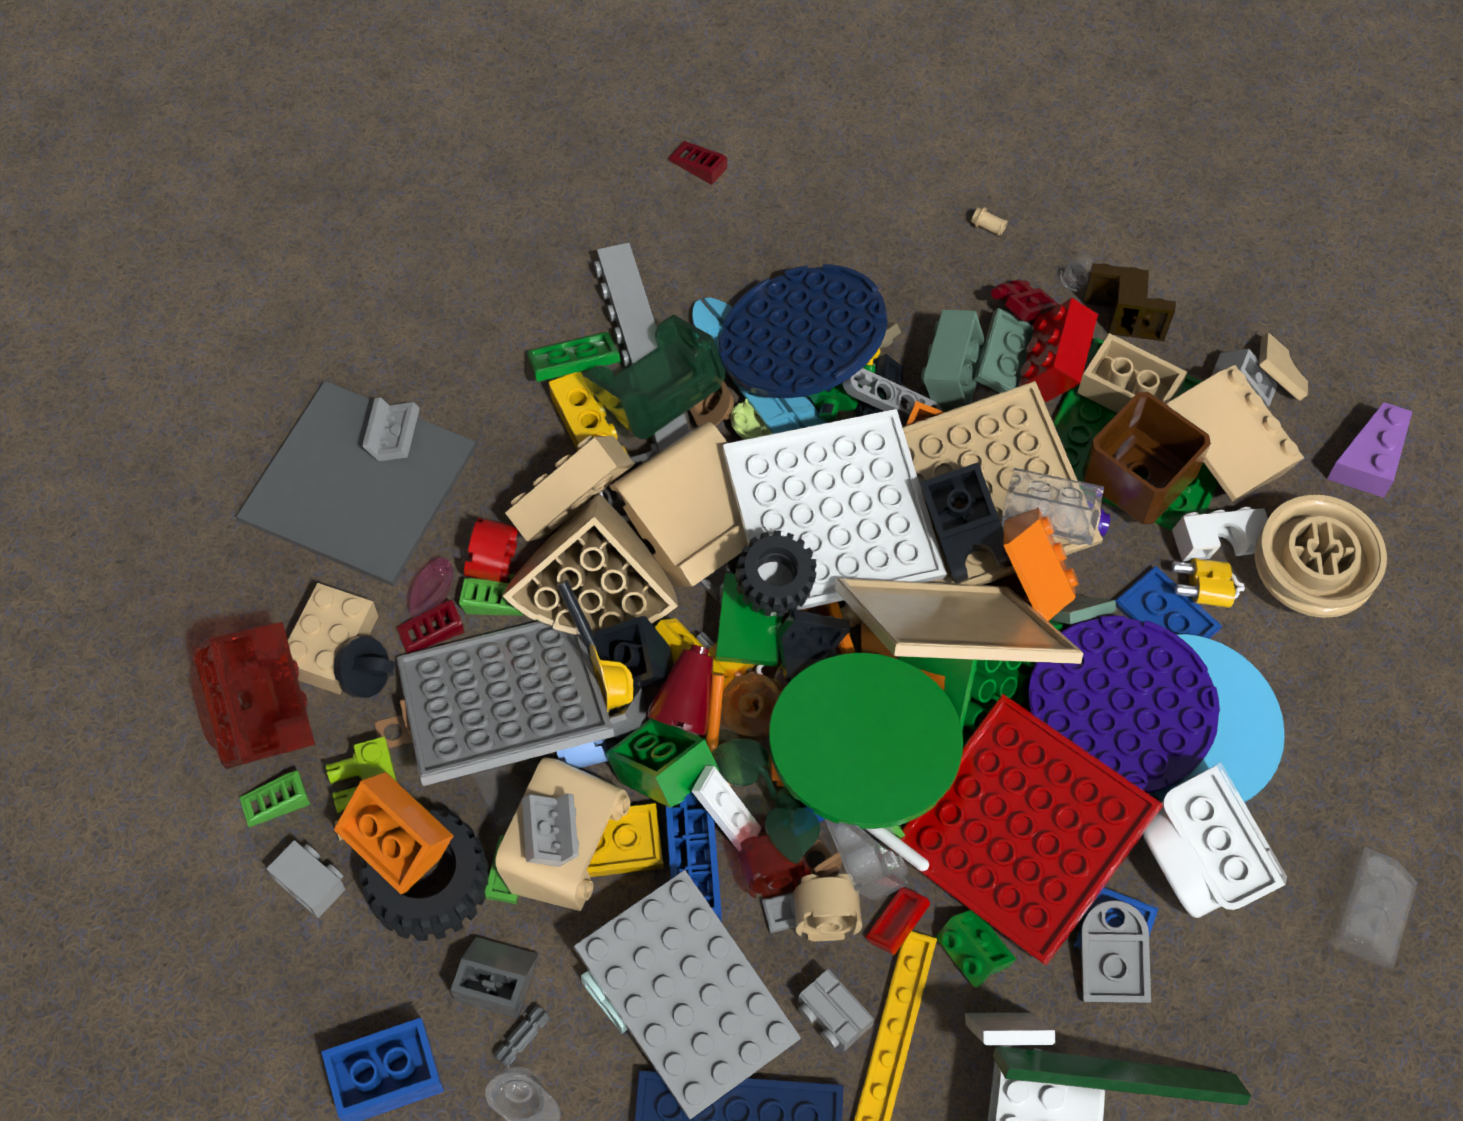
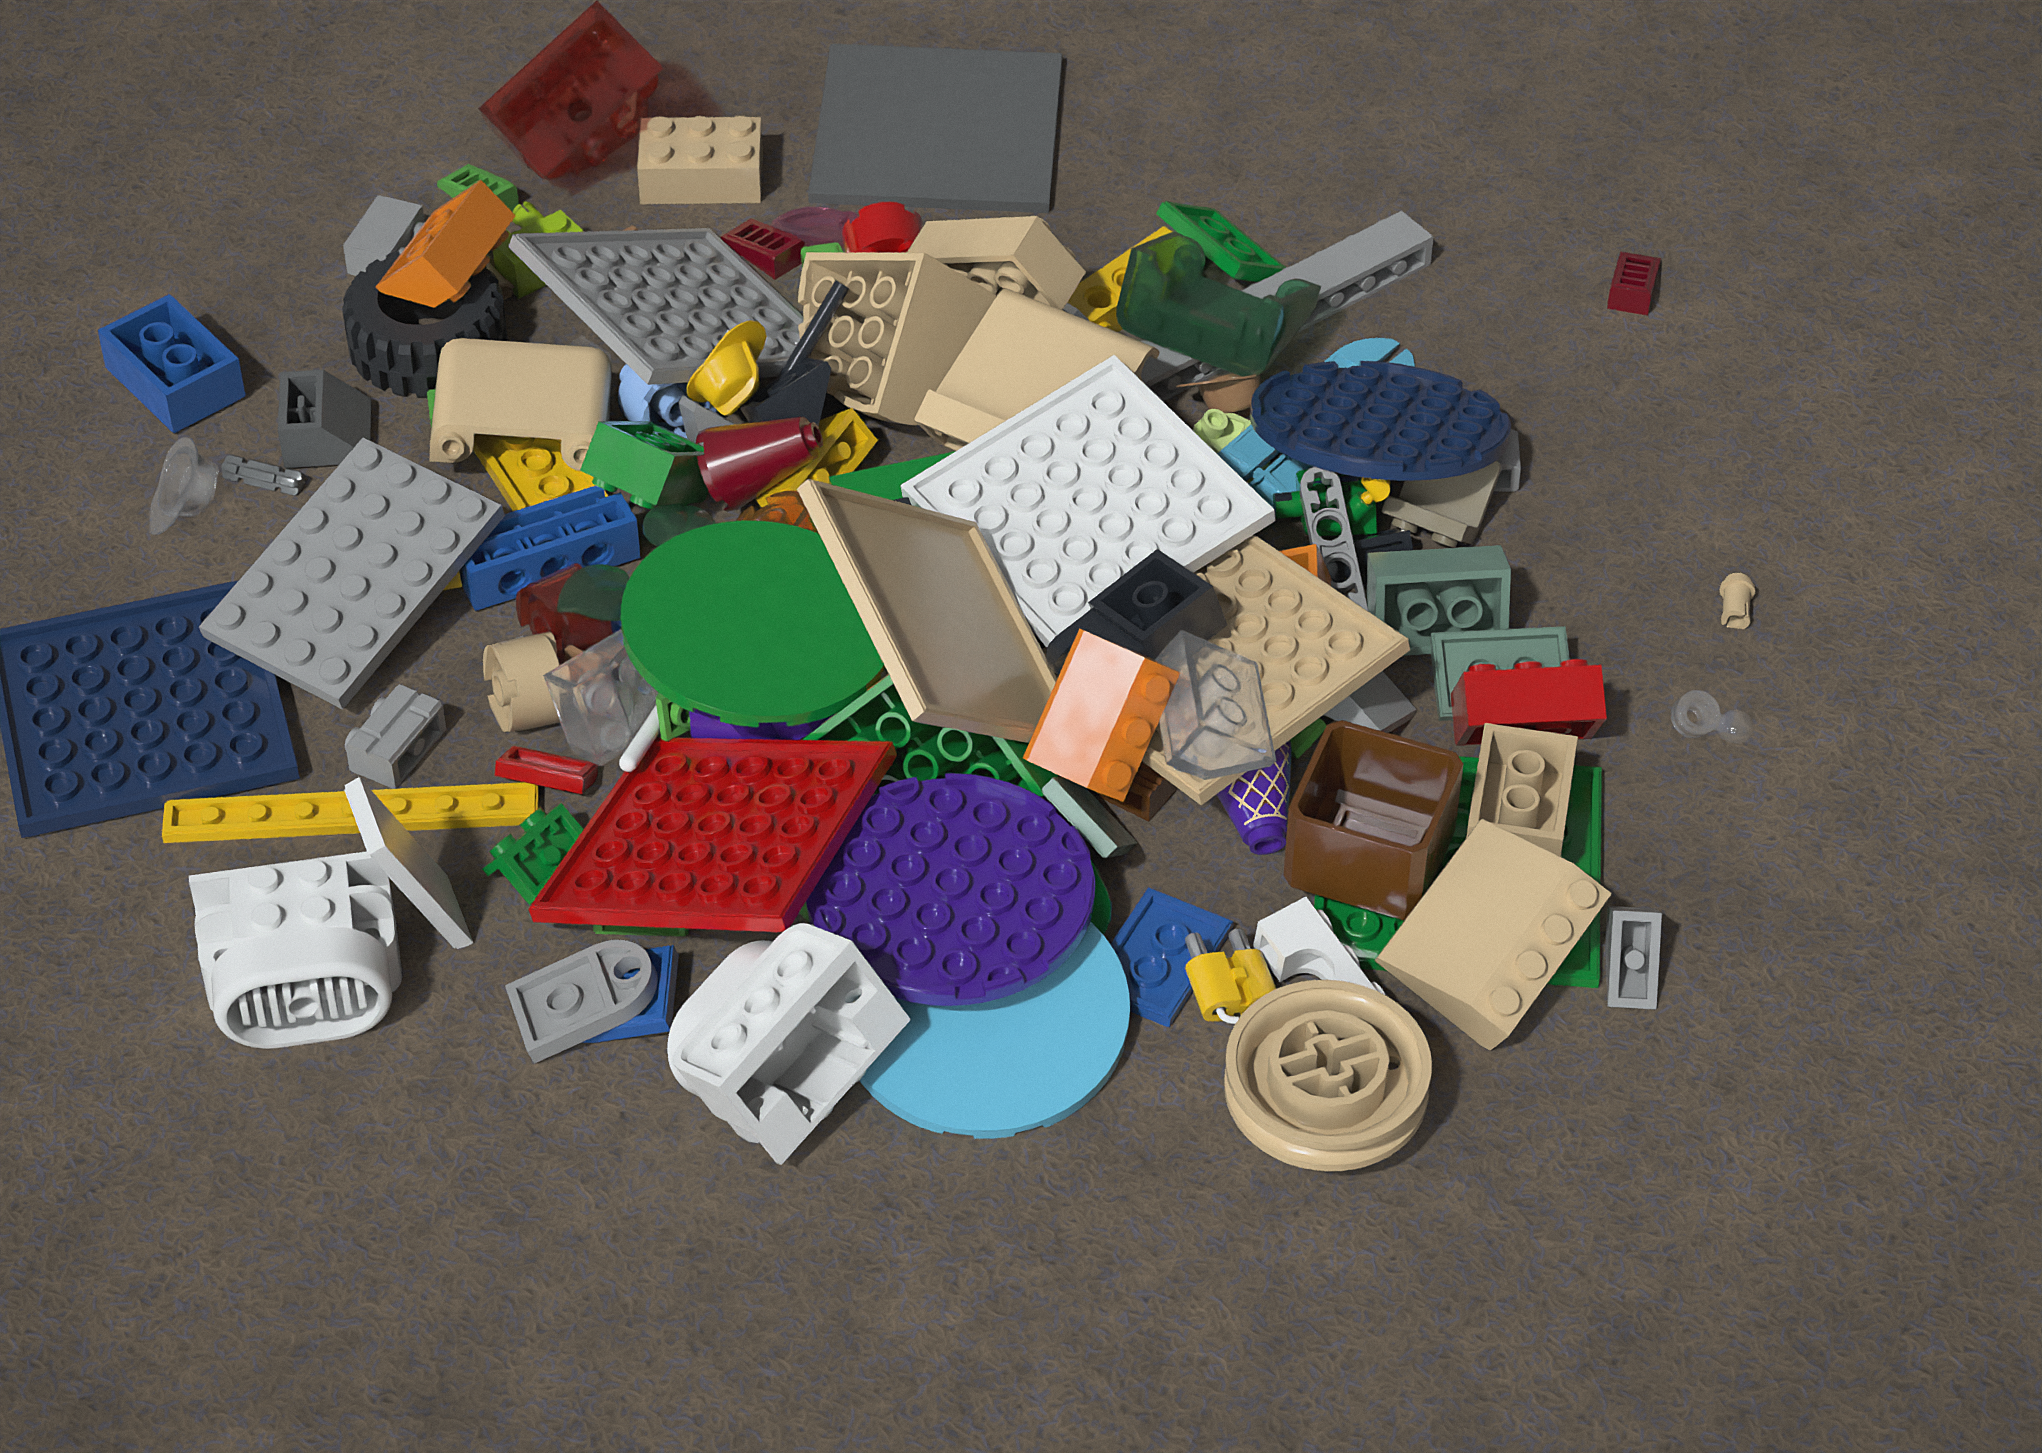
camera: 70 degrees right, 15 degrees down
(362, 667) = (671, 191): black tile -> none
(390, 430) = (1012, 113): light grey bracket -> none
(550, 829) = (495, 361): light grey bracket -> none
(716, 696) = (756, 492): orange bar -> none
(725, 806) = (618, 522): white tile -> none
(780, 550) = (938, 428): black tyre -> none
(1024, 300) = (1623, 663): dark red plate -> none
(1120, 1076) = (385, 1001): dark green tile -> none
(1126, 295) = (1673, 769): dark brown bracket -> none
(1277, 363) = (1678, 985): tan tile -> none
(1374, 908) = (776, 1283): clear slope -> none
(1375, 452) = (1591, 1138): medium lavender wedge -> none

